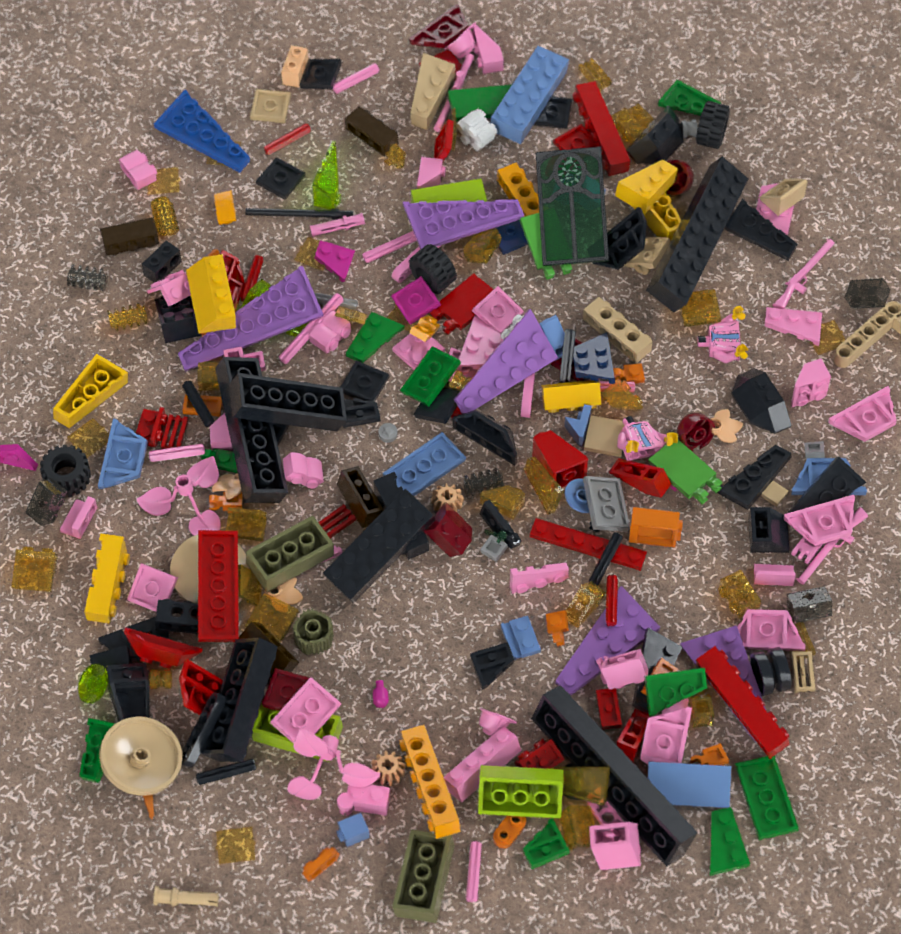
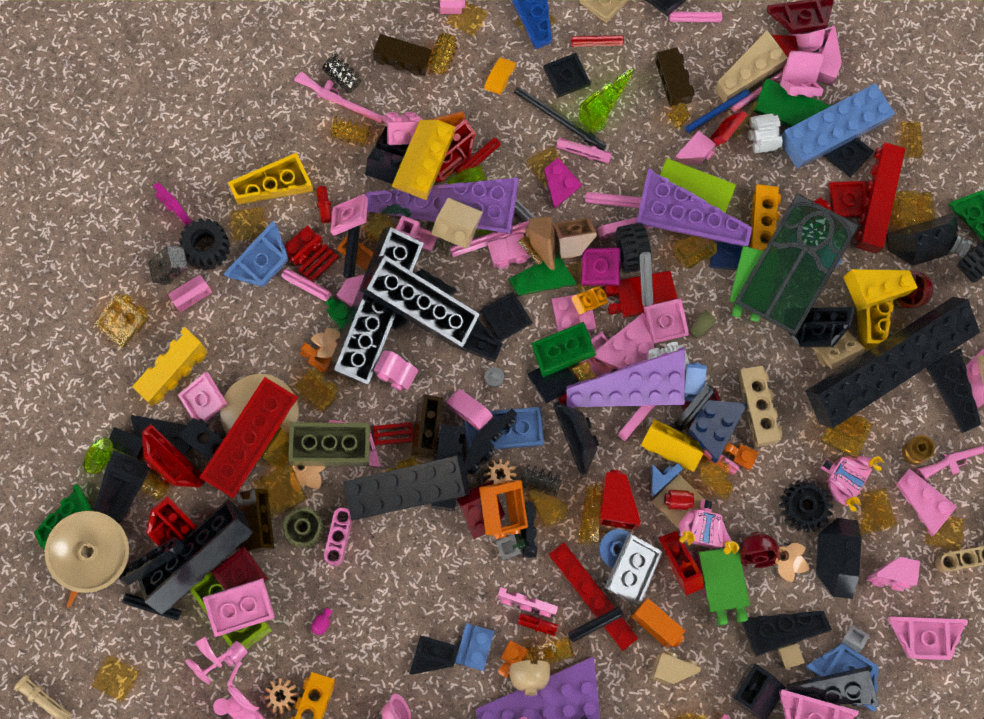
camera: 30 degrees right, 15 degrees up
(83, 302) = (325, 93): none -> bright pink piece
(146, 386) = (323, 204): none -> red axle
(161, 262) = (411, 96): black brick -> none
(176, 377) = (349, 214): none -> bright pink plate
(203, 474) = (265, 316): bright pink plant -> none
(214, 350) = (396, 209): none -> piece
(274, 330) = (457, 223): none -> tan slope
(347, 615) = (333, 546): none -> bright pink beam
(354, 302) = (543, 239): none -> medium nougat slope
(376, 292) = (573, 237): none -> medium nougat slope
(385, 462) = (469, 409): none -> bright pink beam
(416, 473) = (481, 447): none -> black slope
(424, 137) = (716, 111): none -> blue bar
(460, 283) = (646, 278): none -> light grey axle
(470, 513) = (515, 506): none -> orange window
(474, 70) = (802, 73): none -> bright pink bracket
(528, 296) = (702, 324): none -> olive cone
(558, 589) = (537, 624): none -> red axle
(580, 624) = (530, 676): none -> tan cylinder
(605, 430) = (679, 499): none -> red brick
(611, 600) = (573, 668): red axle -> none
(690, 552) = (670, 670): none -> tan slope
(695, 380) = (818, 505): none -> black gear
(763, 288) = (913, 451): none -> pearl gold wheel
(765, 352) = (877, 512): none -> clear yellow wing

